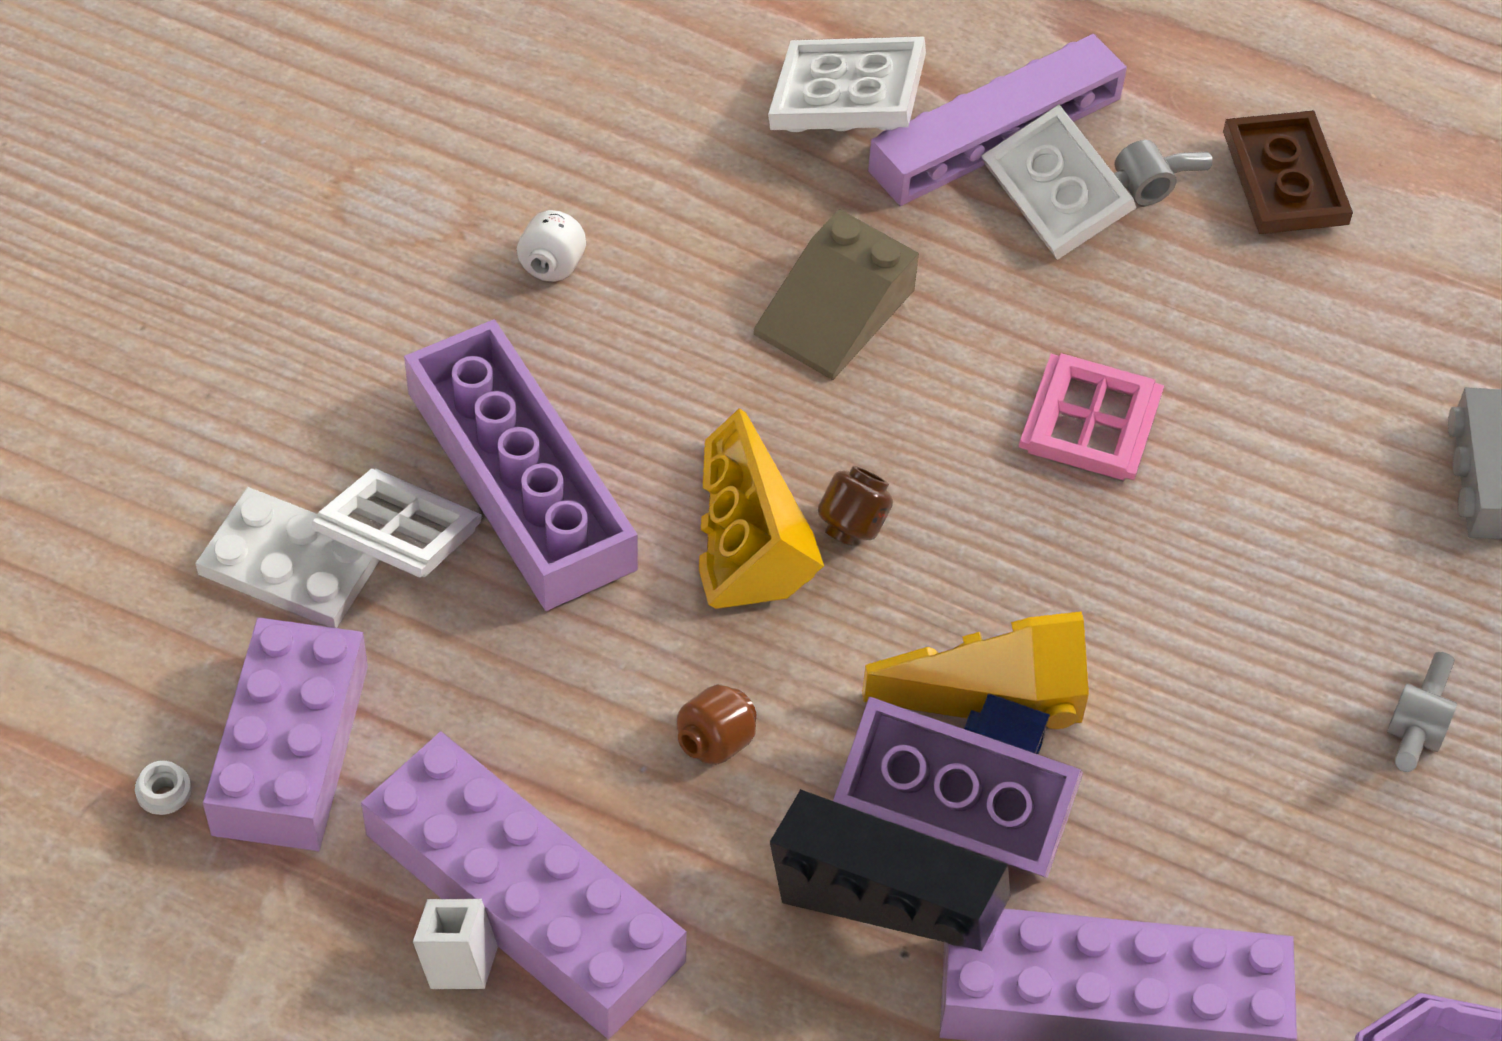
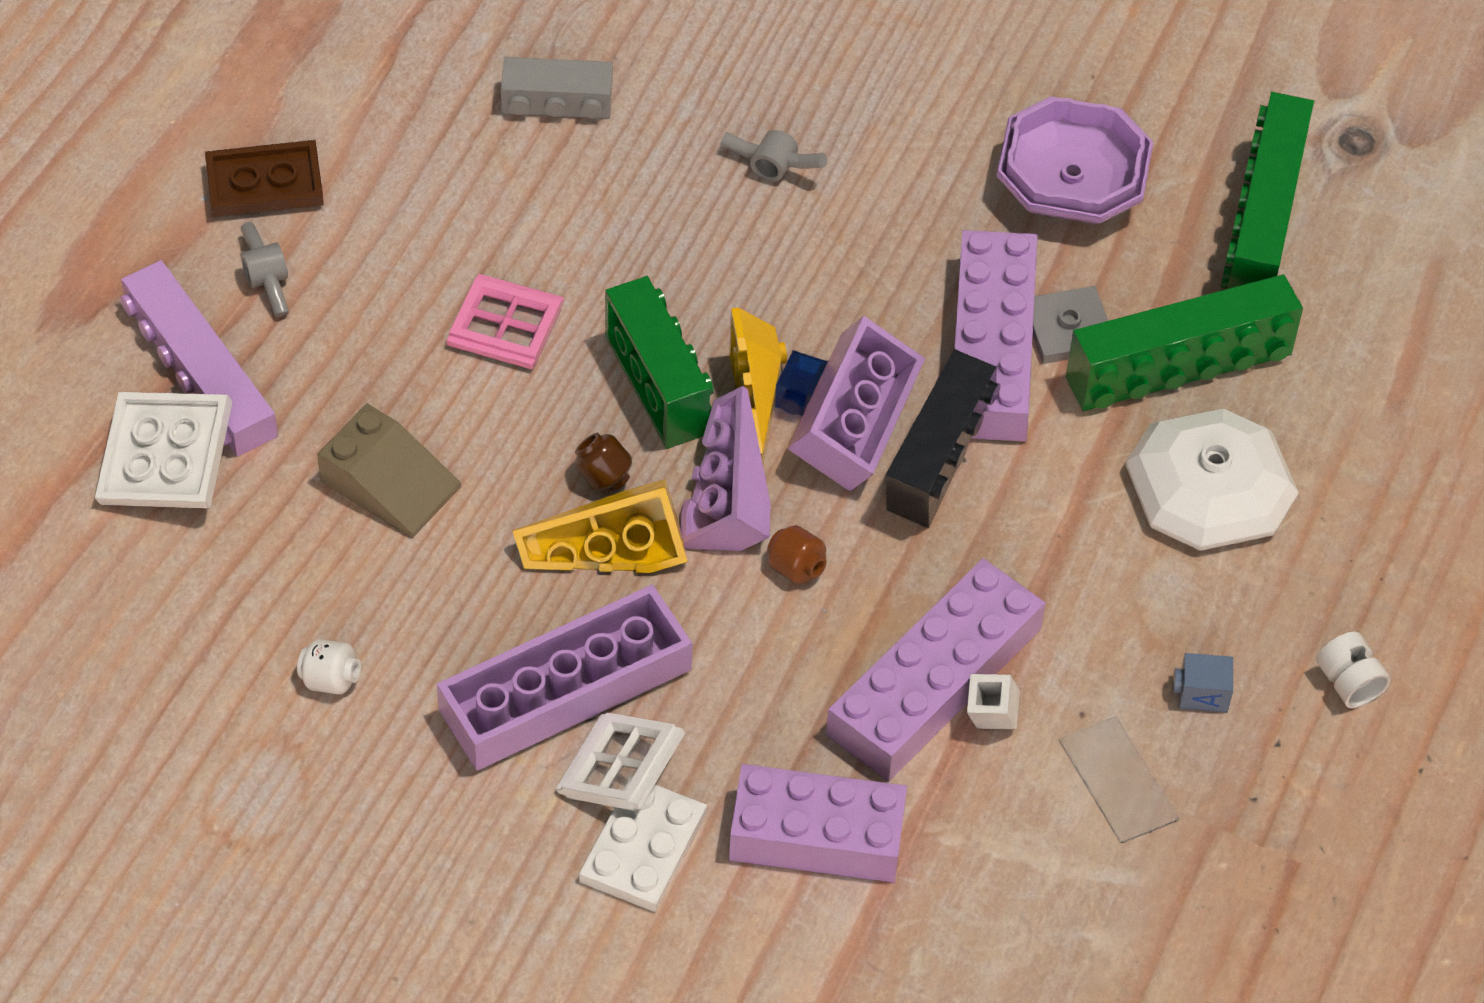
camera: 90 degrees left, 0 degrees up
(160, 775) = (862, 900): white plate -> none
(794, 647) = (731, 489): none -> lavender wedge
(1014, 556) = (658, 361): none -> green brick
(1058, 181) = (276, 318): white plate -> none

